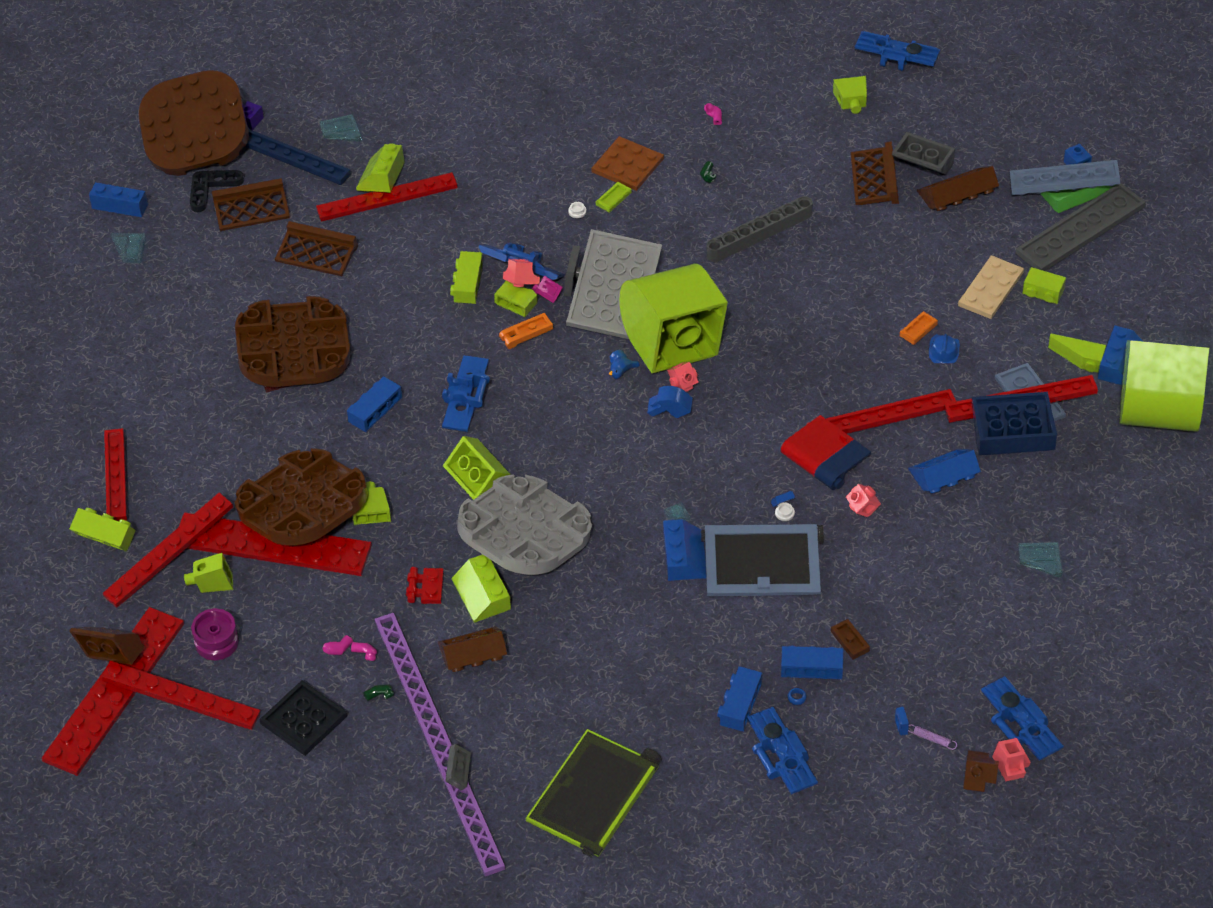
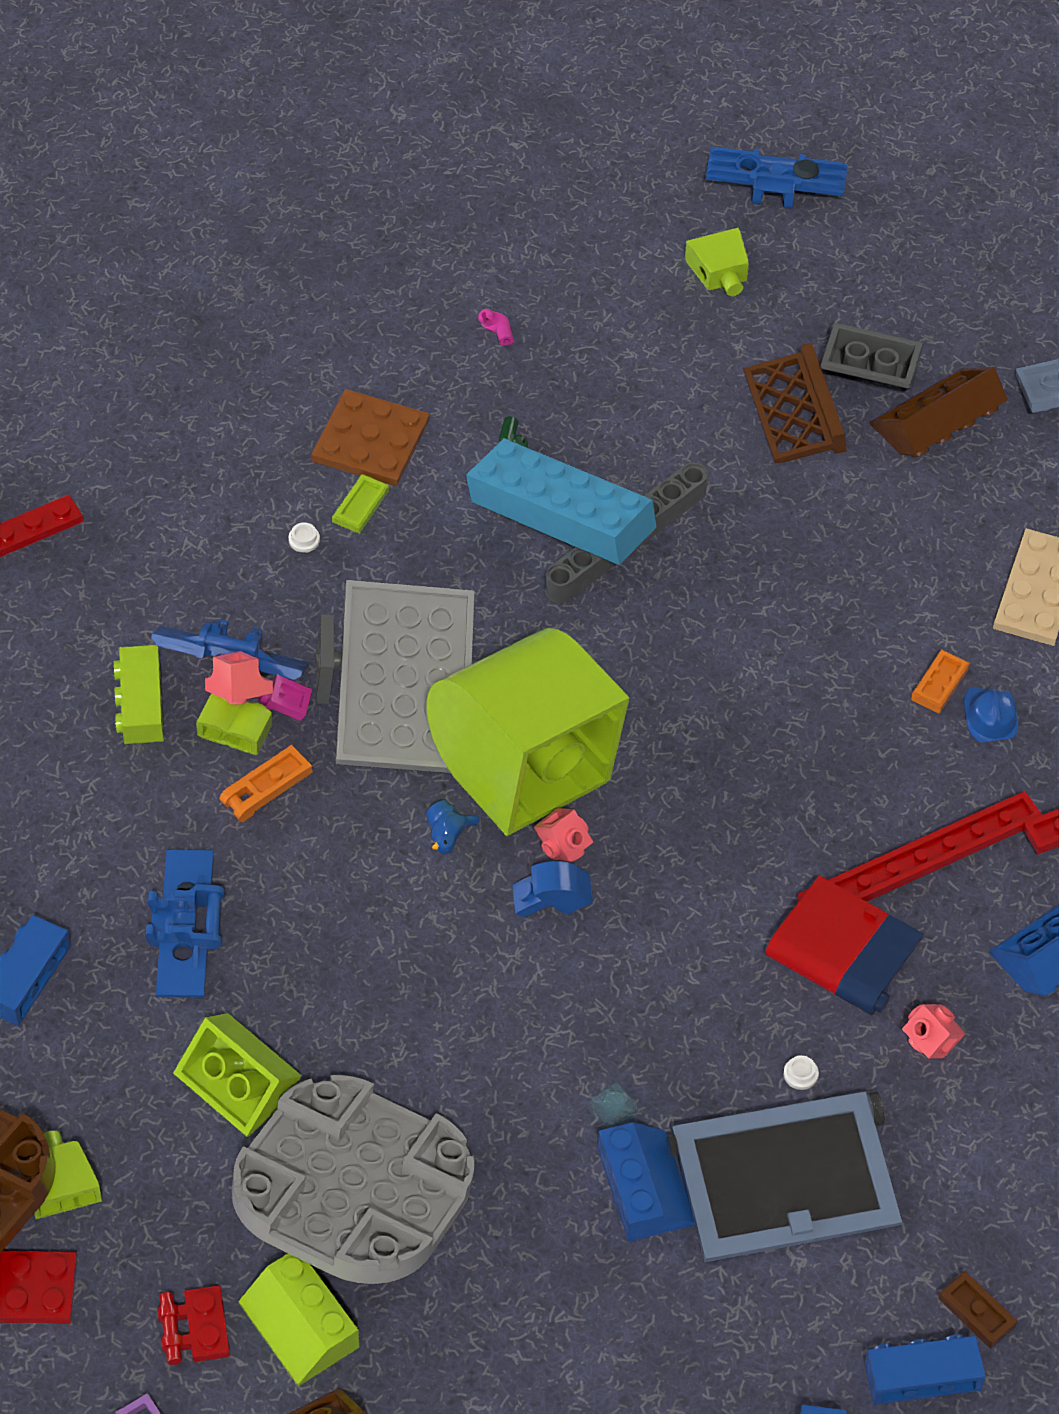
camera: 15 degrees left, 5 degrees up
(724, 206) = (561, 501): none -> dark azure brick
(783, 498) = (792, 1049): blue tile -> none

